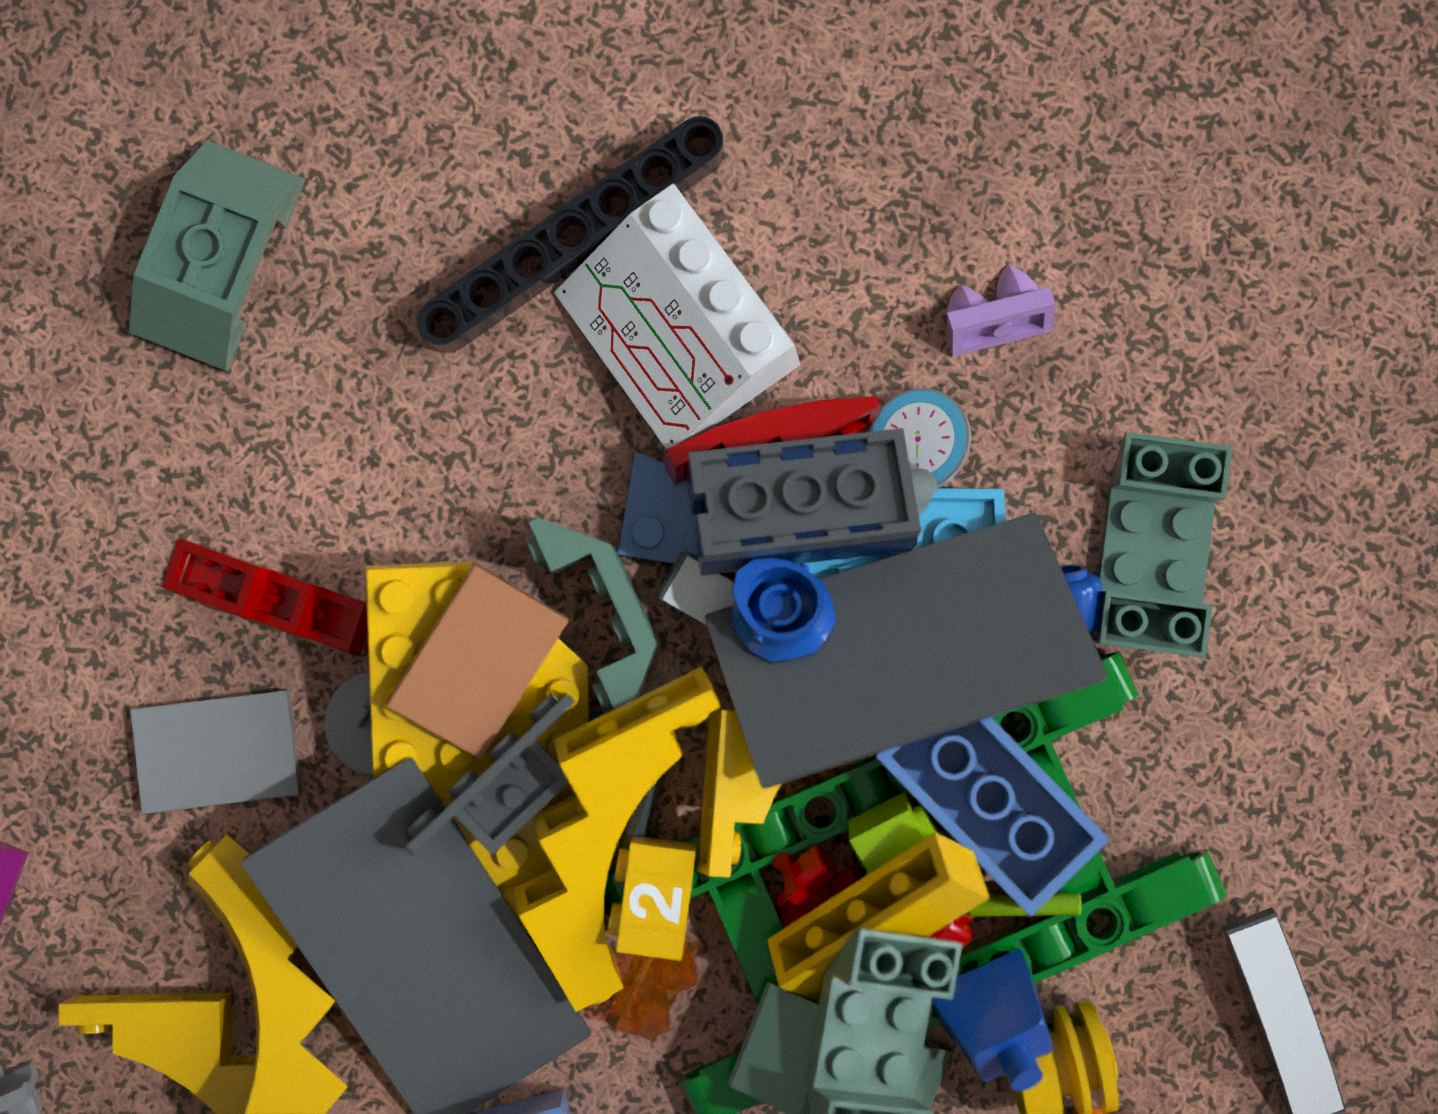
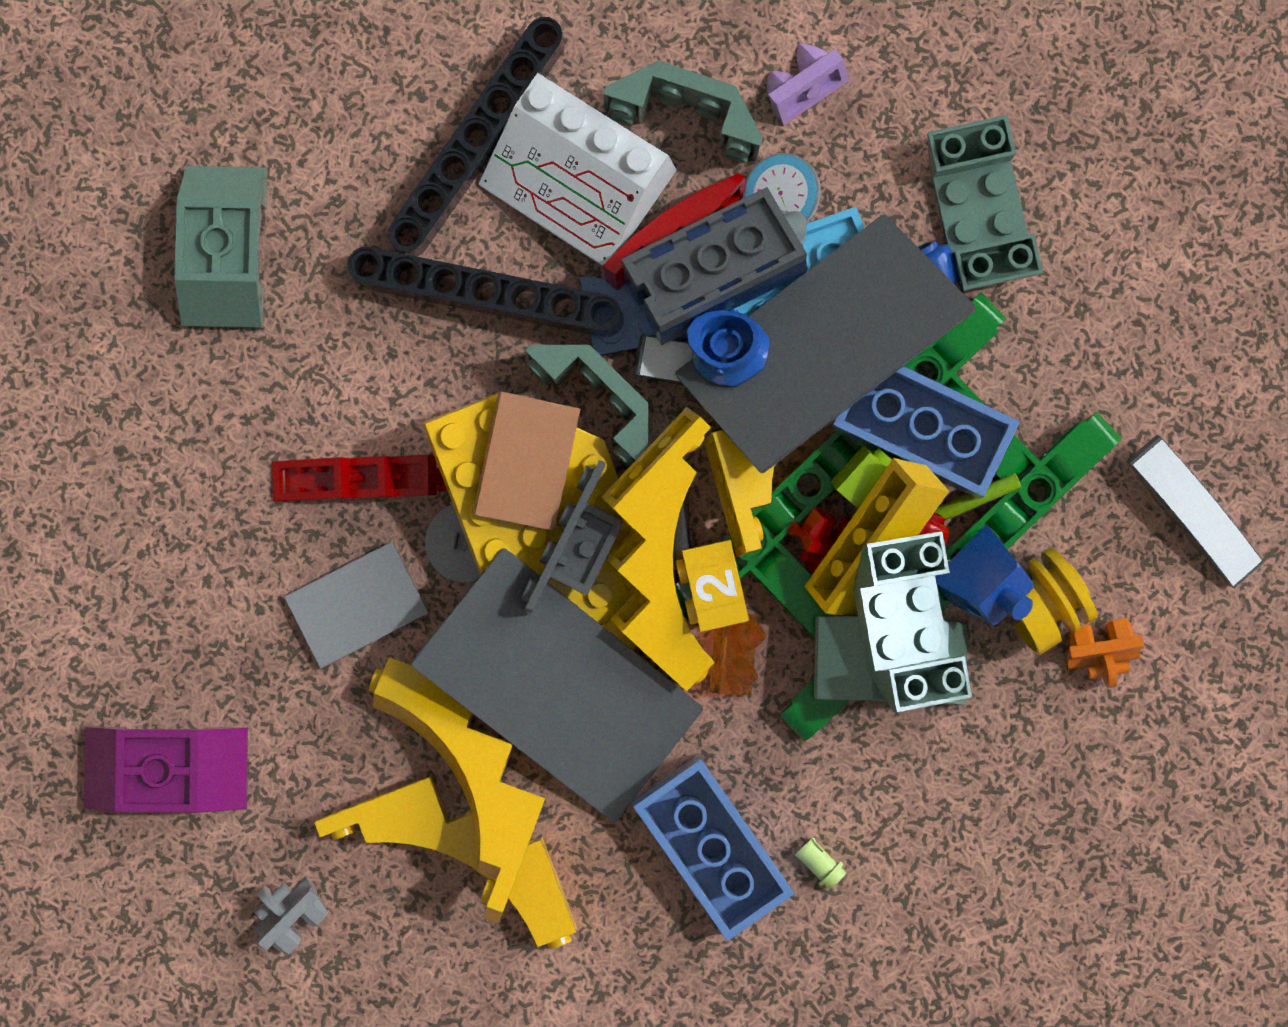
camera: 20 degrees left, 0 degrees up
(493, 410) = (471, 279): none -> black beam
(835, 263) = (681, 86): none -> sand green slope

